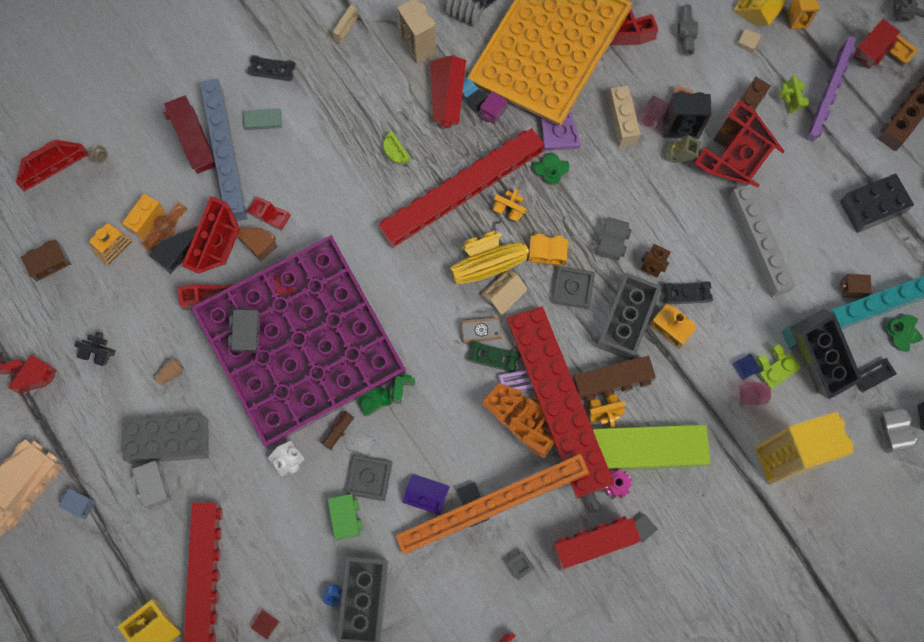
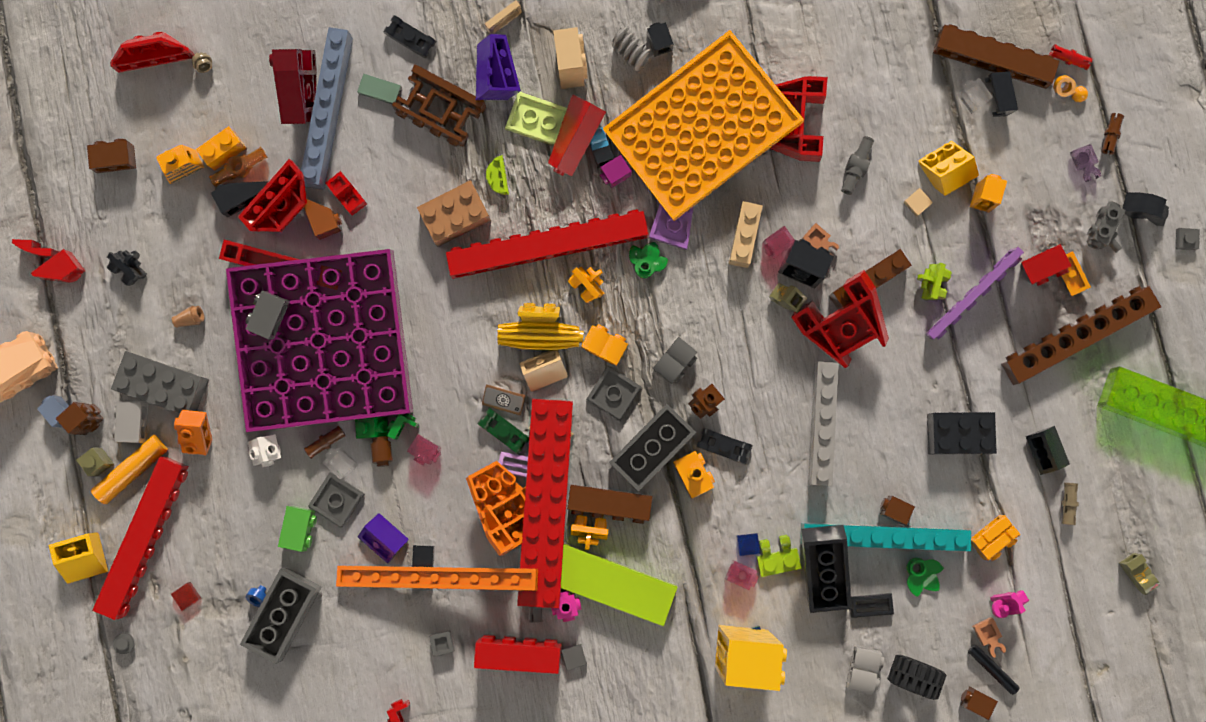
camera: 30 degrees right, 10 degrees up
(103, 498) = (80, 418): none -> reddish brown brick
(131, 534) = (94, 461): none -> olive brick
(166, 530) = (129, 470): none -> light orange brick
(215, 467) = (193, 432): none -> orange brick
(322, 99) = (446, 92): none -> reddish brown fence
(357, 64) = (495, 69): none -> dark purple wedge
(371, 192) = (453, 213): none -> medium nougat brick
(392, 417) = (381, 451): none -> reddish brown brick
(407, 93) = (536, 118): none -> yellowish green tile
(431, 400) = (424, 450): none -> clear pink brick

